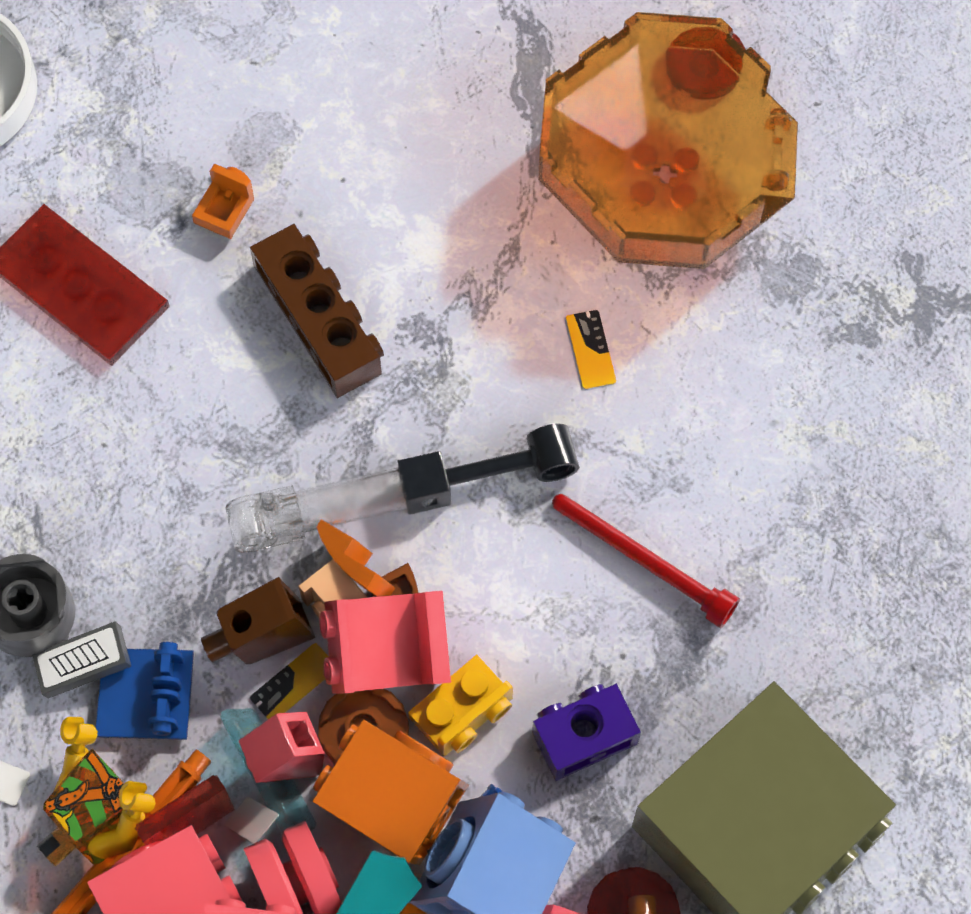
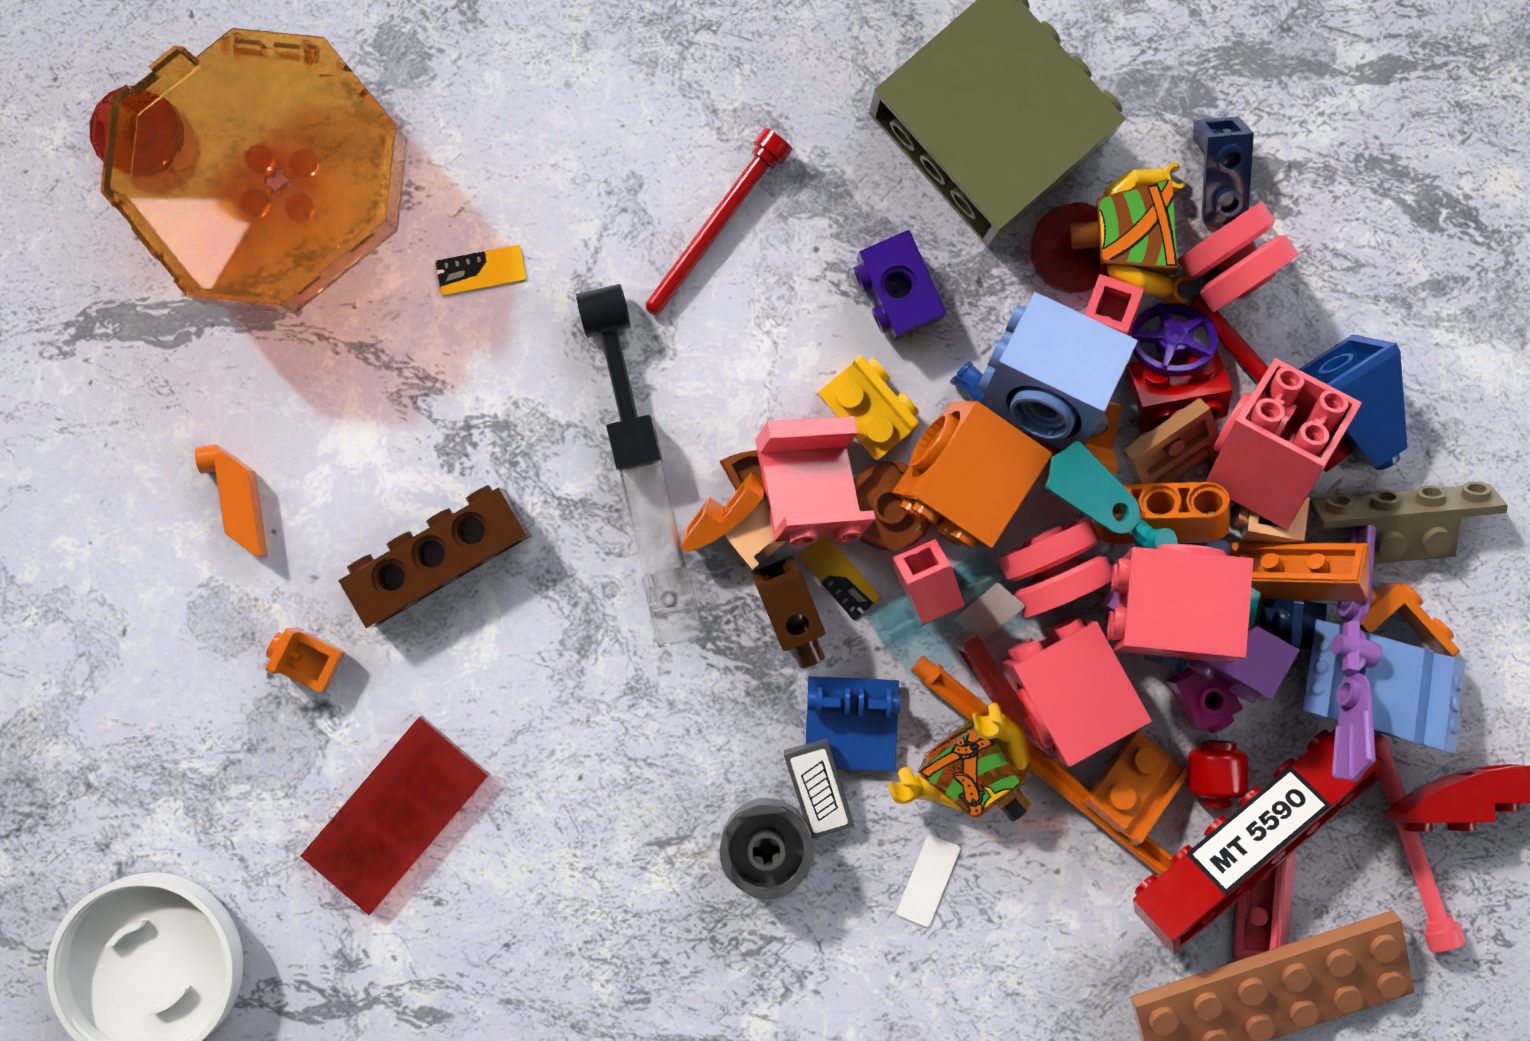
camera: 90 degrees left, 20 degrees up
(373, 147) = (237, 497): none -> orange piece

